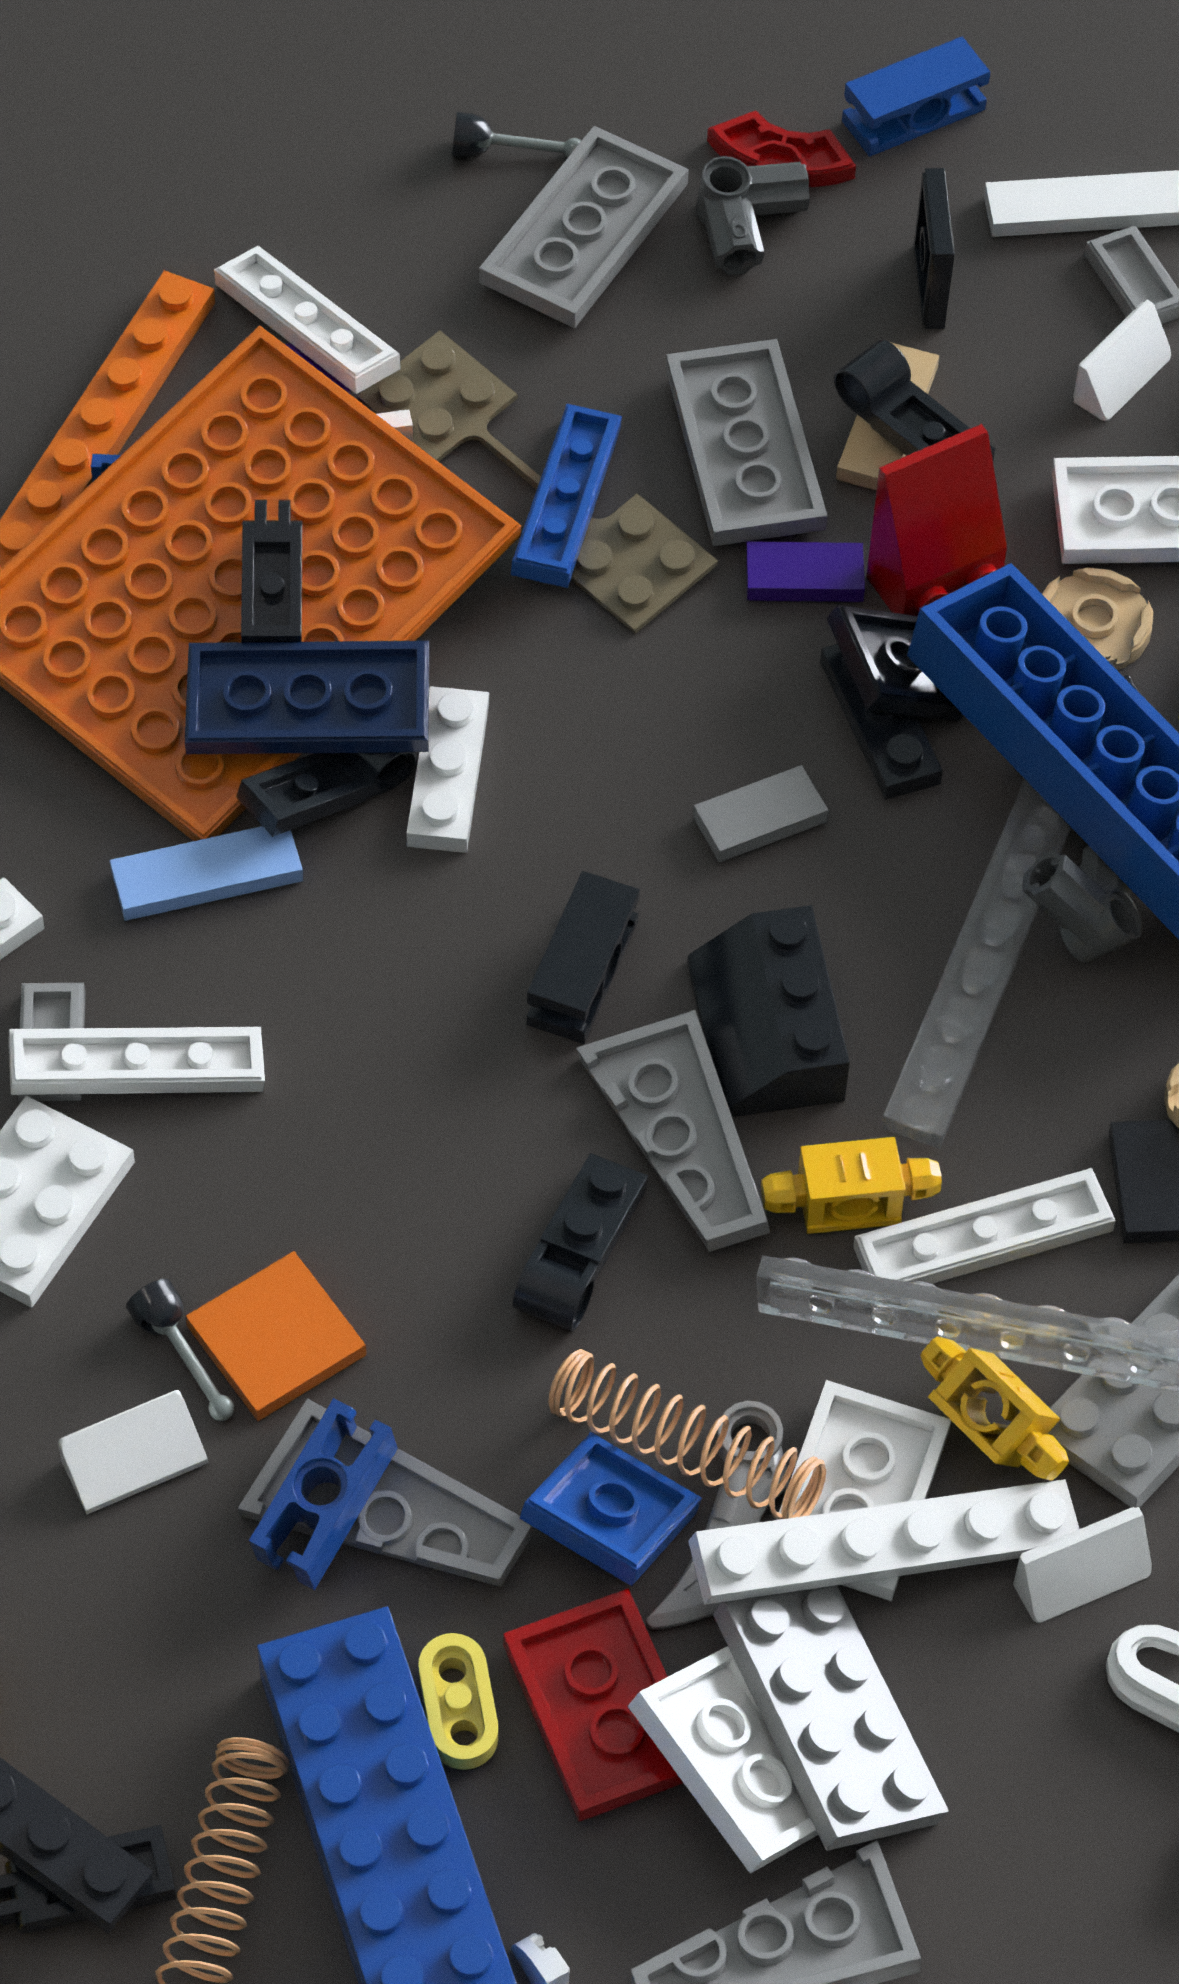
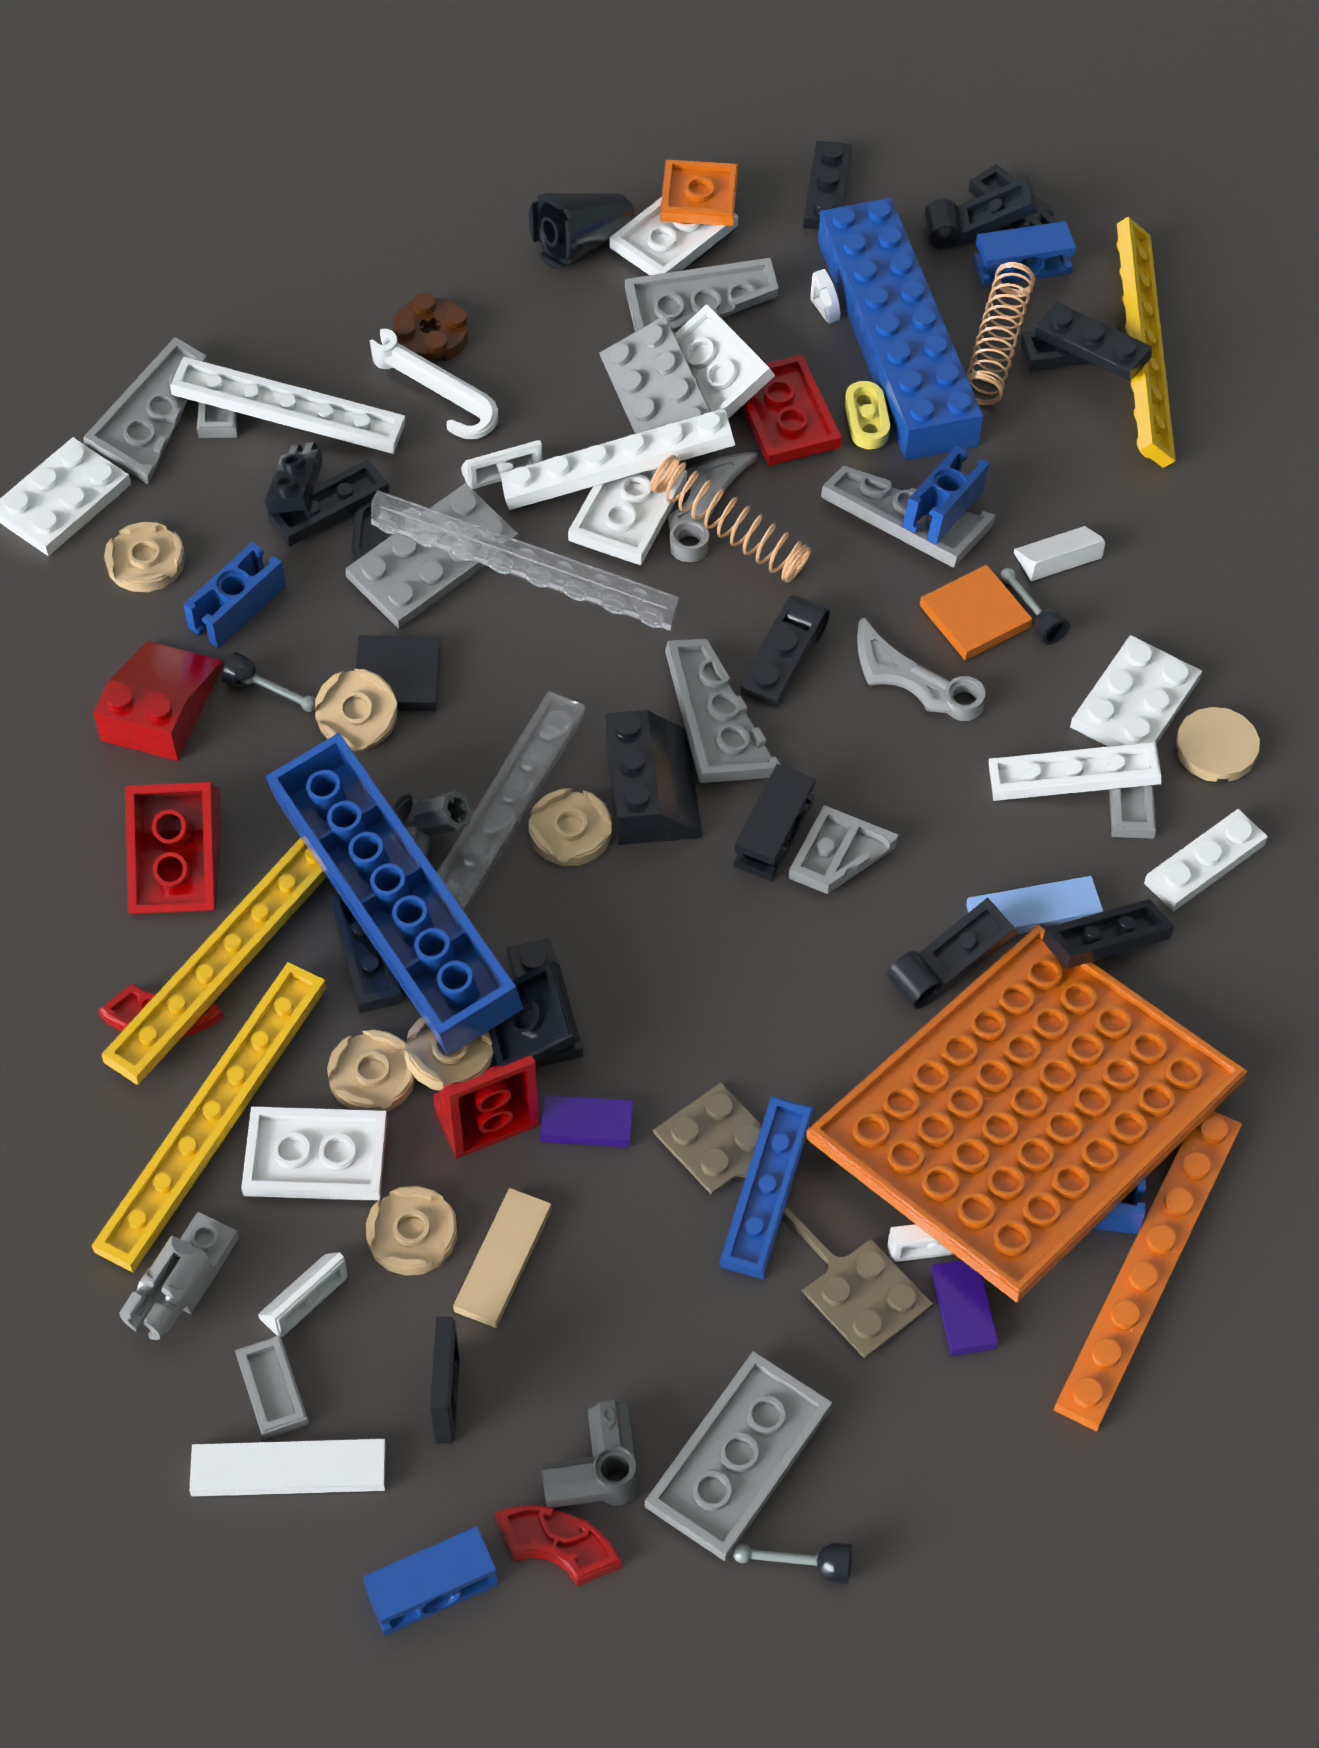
camera: 175 degrees left, 0 degrees up
(107, 809) = (1107, 933): none -> black plate
(272, 576) = (999, 1076): black hinge -> none
(307, 319) = (977, 1362): white tile -> none
(307, 697) = (969, 995): dark blue tile -> none
(417, 1235) = (886, 665): none -> light grey piece
(449, 771) = (863, 977): white plate -> none
(488, 929) = (839, 850): none -> light grey wing
(610, 1508) = (780, 492): blue tile -> none
(745, 442) = (622, 1232): light grey plate -> none
(760, 813) = (641, 930): light grey tile -> none
(851, 1185) = (611, 667): yellow piece -> none
(881, 957) = (570, 827): none -> tan tile
(882, 393) = (486, 1218): black plate -> none
(988, 1231) = (528, 649): white tile -> none
(1022, 436) = (411, 1230): none -> tan tile
(1022, 1441) = (540, 523): yellow piece -> none

